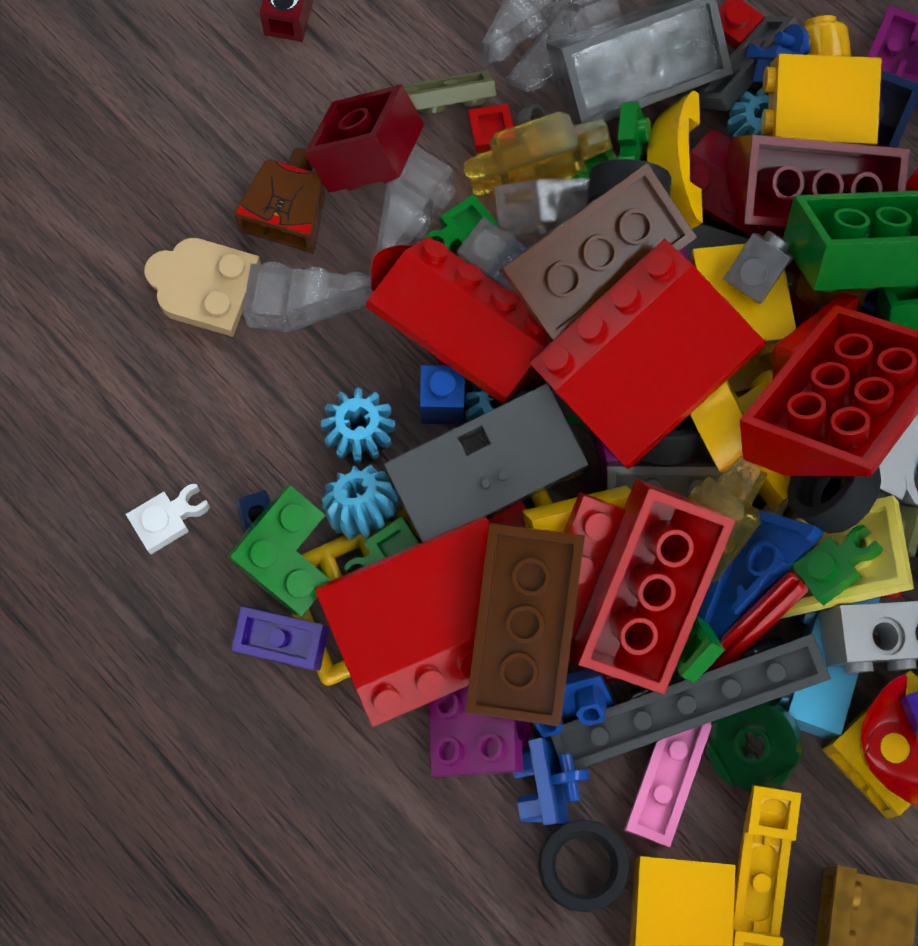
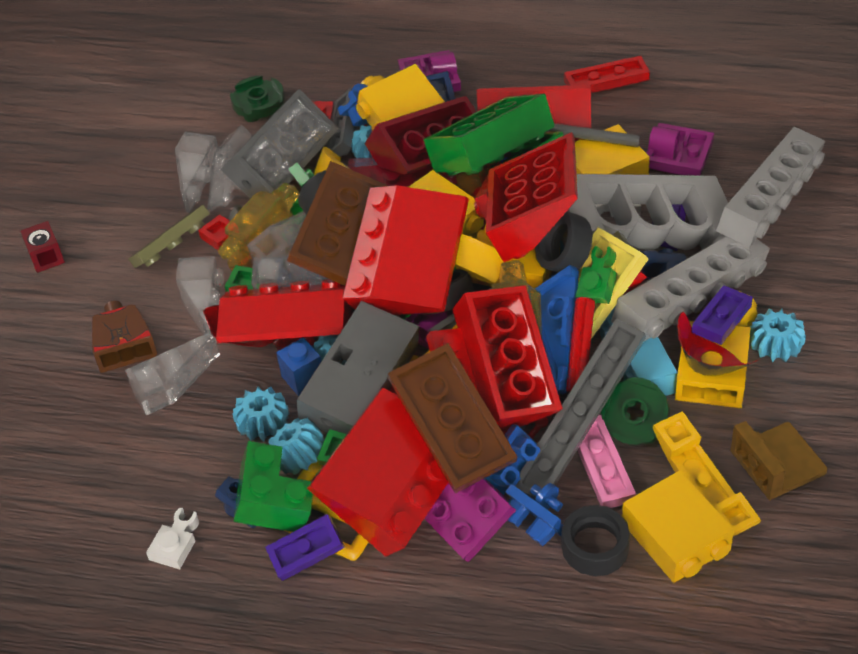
camera: 30 degrees left, 25 degrees down
(201, 283) = (98, 409): tan plate -> none
(365, 139) = (148, 269): dark red brick -> none
(699, 651) = (563, 373): green plate -> none
(759, 265) = (432, 175): flat silver bracket -> none

